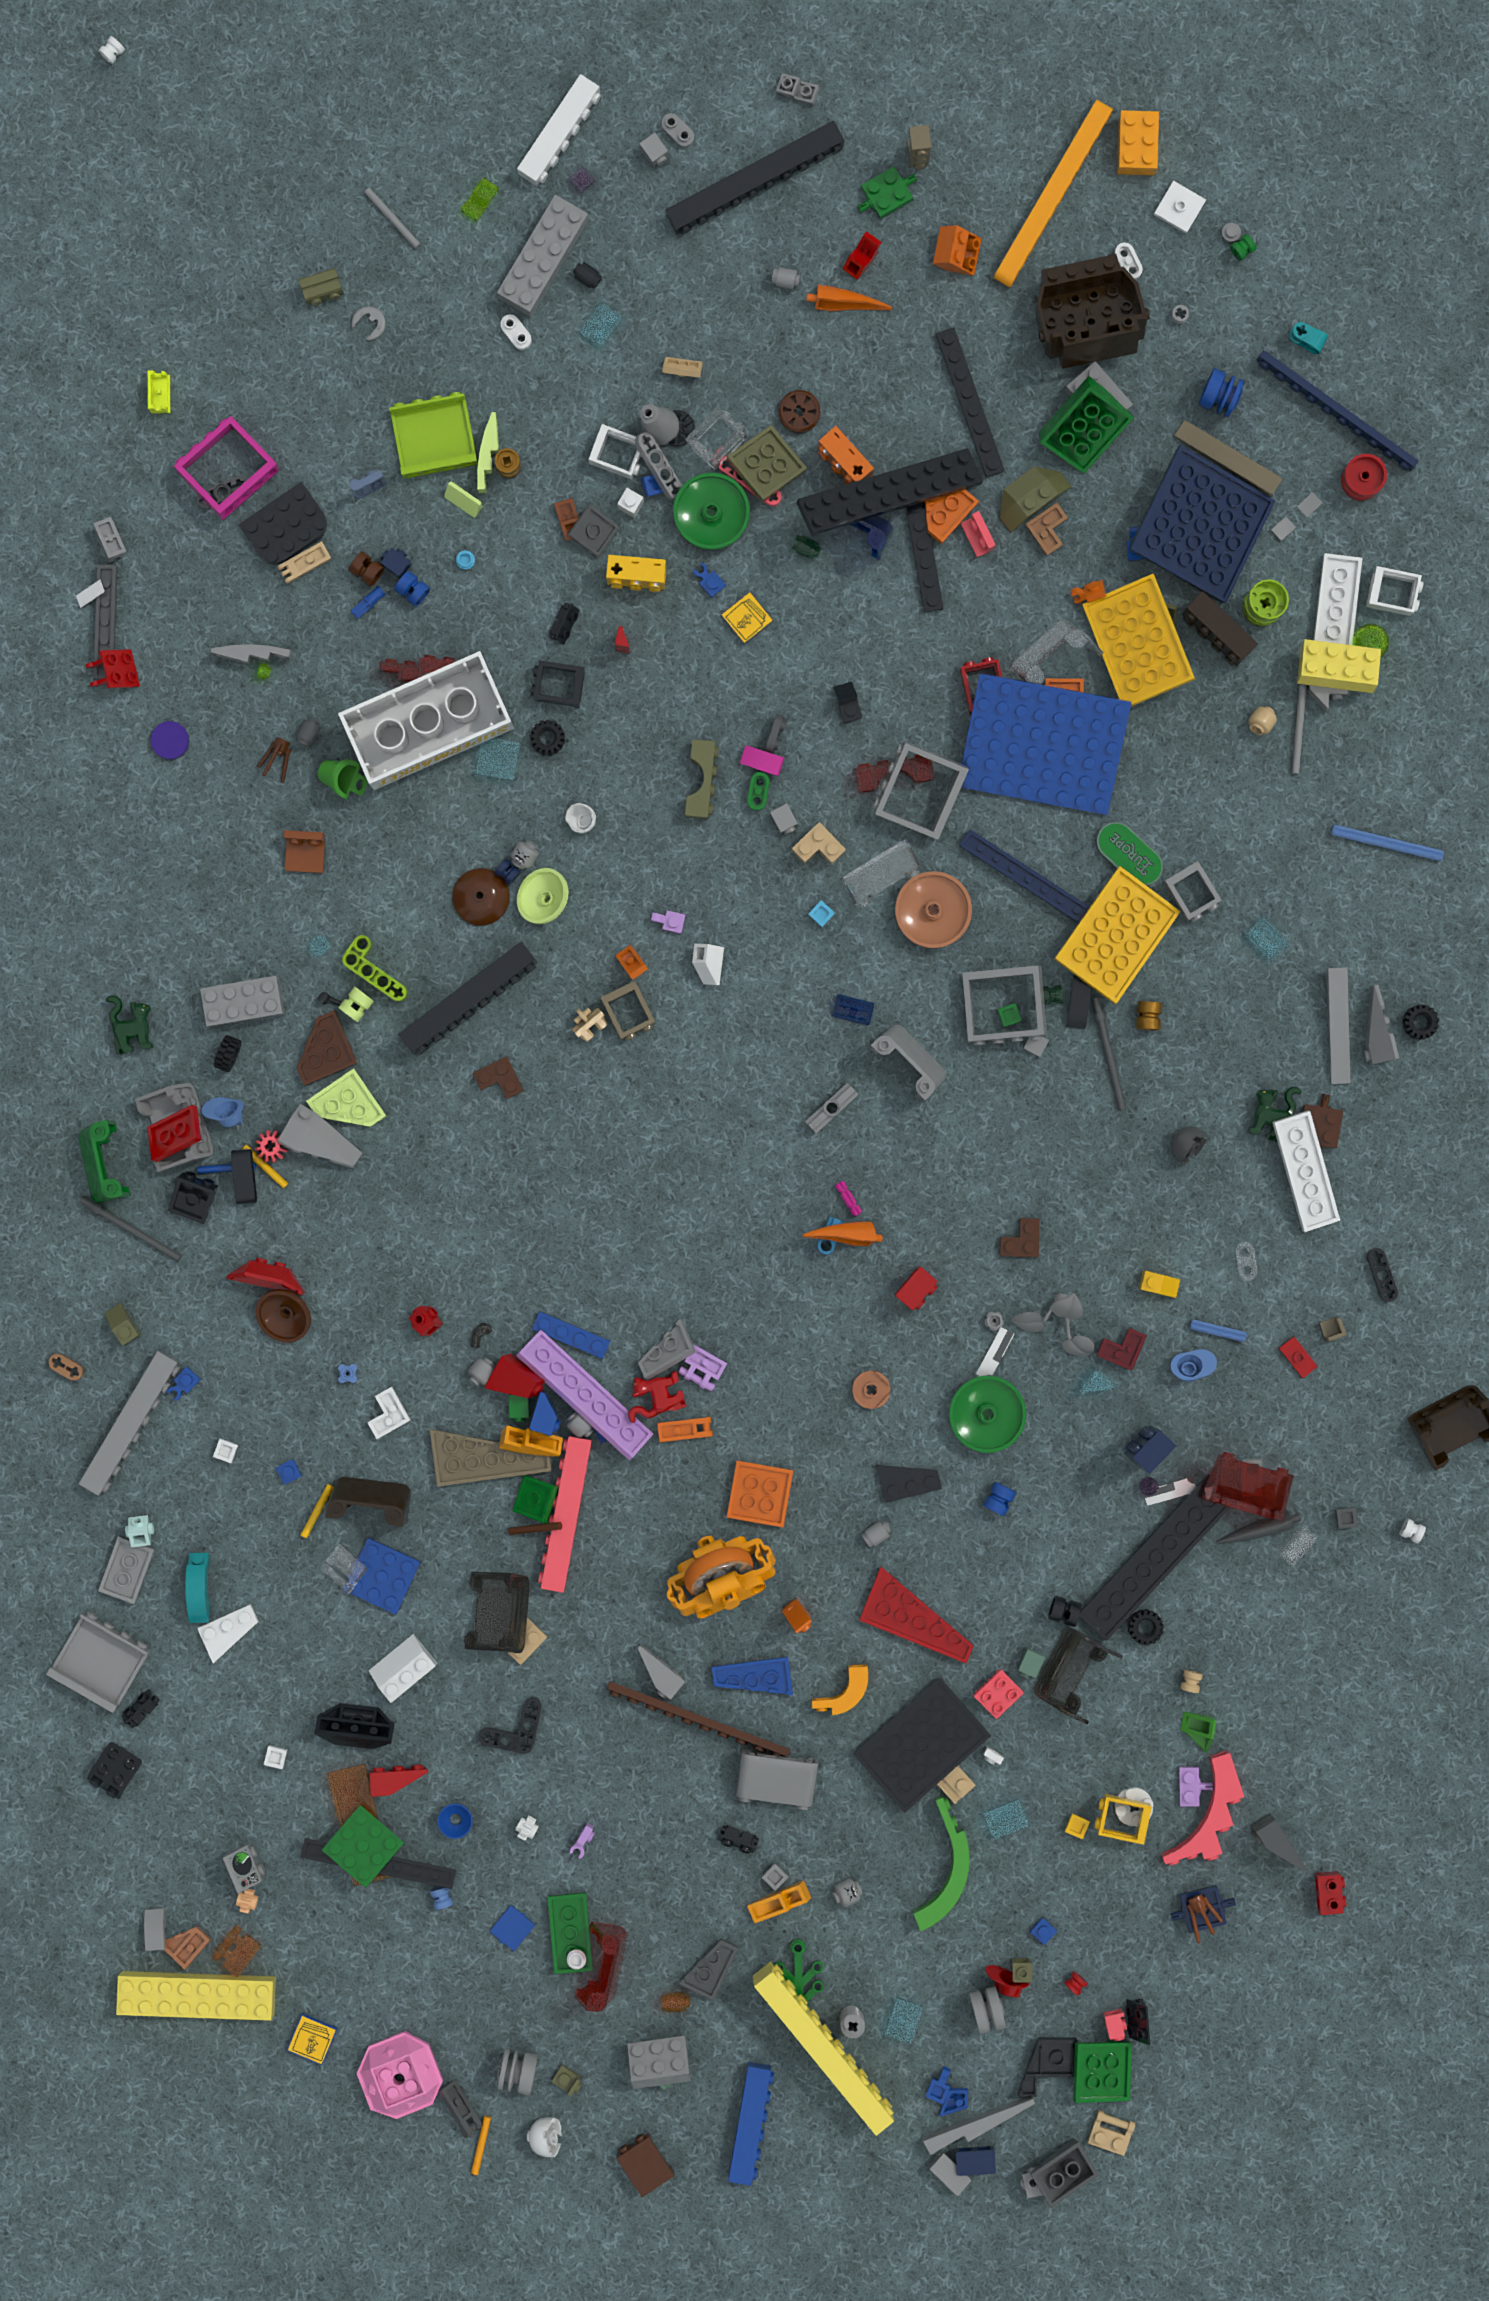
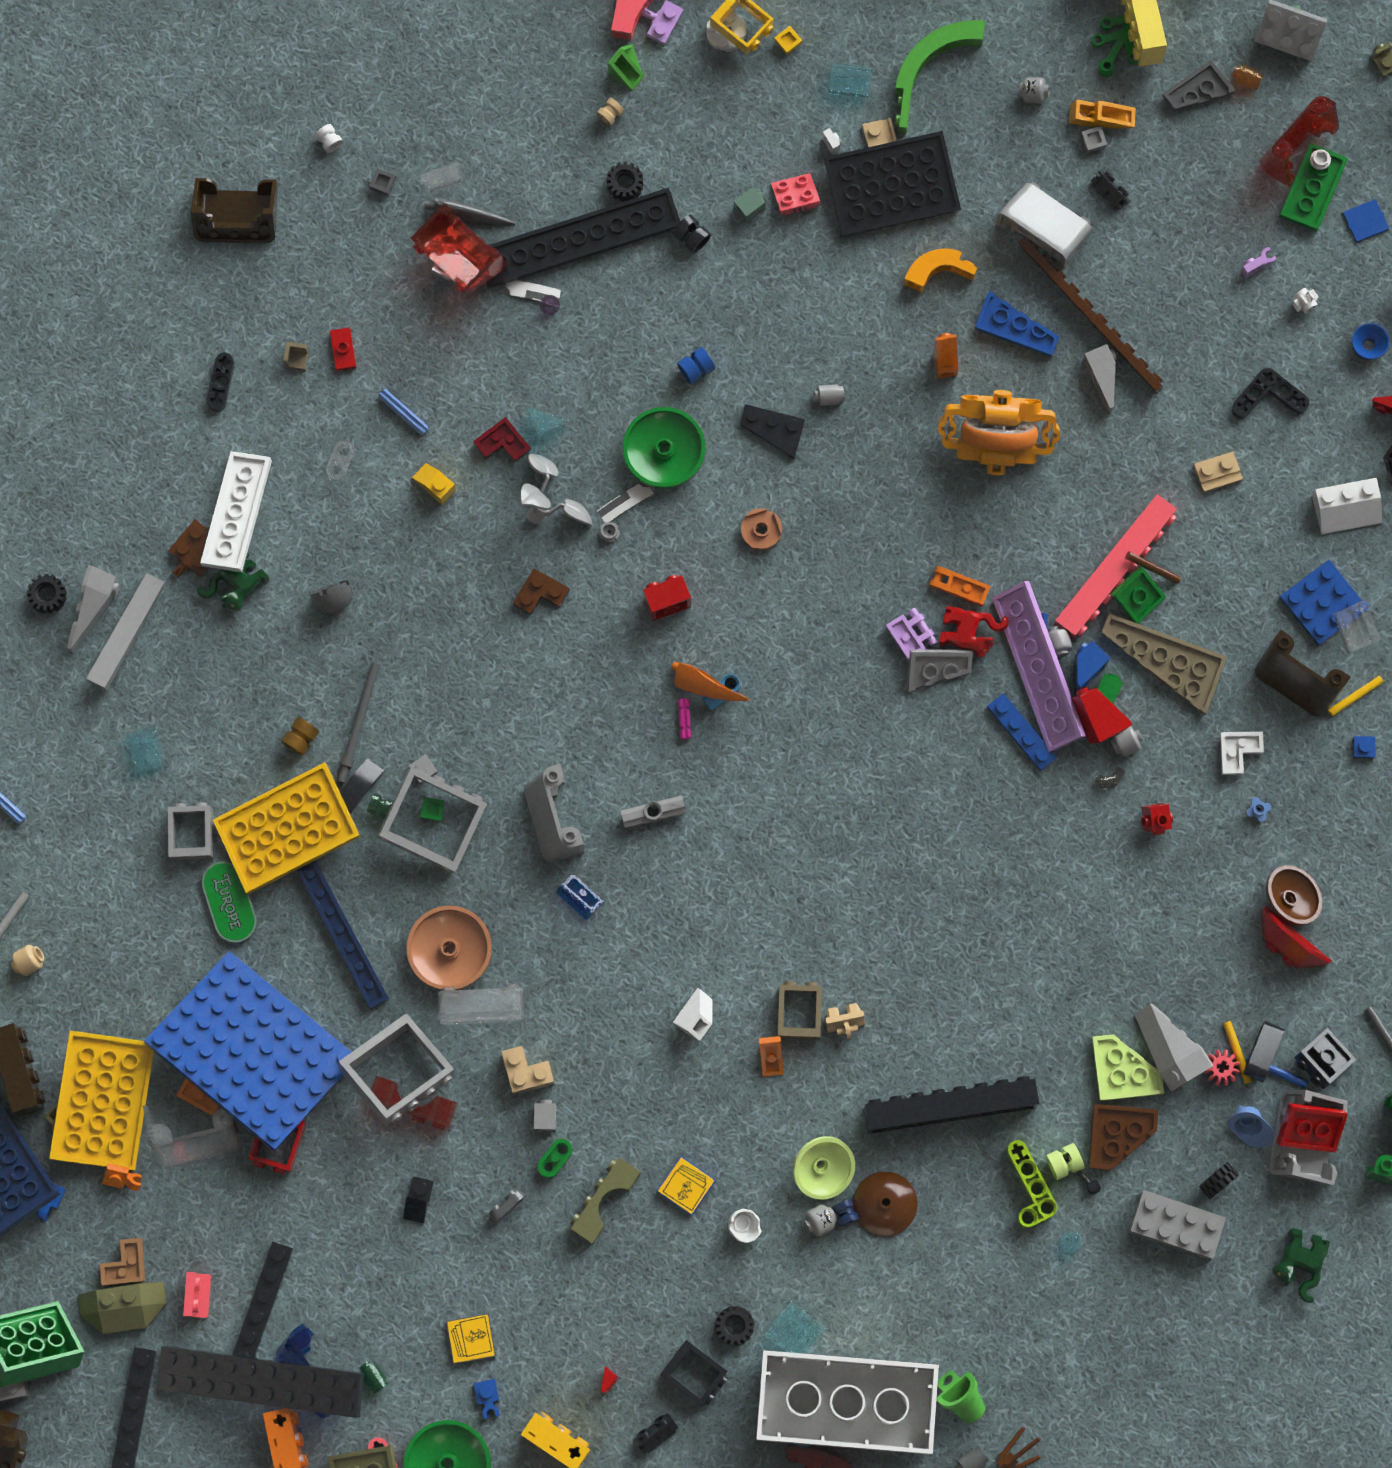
camera: 150 degrees left, 10 degrees down
(304, 851) = (1037, 1342): dark orange bracket -> none
(499, 1612) = (1229, 507): clear smoke windscreen -> none
(501, 1073) = (956, 1019): reddish brown plate -> none
(530, 1442) = (1118, 650): light orange slope -> none
(644, 826) = (686, 1185): none -> yellow tile
(671, 922) = (710, 1076): lavender plate -> none
(760, 1493) = (920, 489): orange plate -> none
(762, 760) = (534, 1186): dark pink slope -> none
(821, 913) = (559, 1004): medium azure plate -> none
(905, 1615) = (845, 310): red wing -> none
(947, 512) = (214, 1333): orange plate -> none
(1066, 1670) = (722, 181): clear smoke windscreen -> none
(1149, 1448) = (530, 332): dark blue brick -> none
(1193, 1365) = (444, 390): medium blue piece -> none

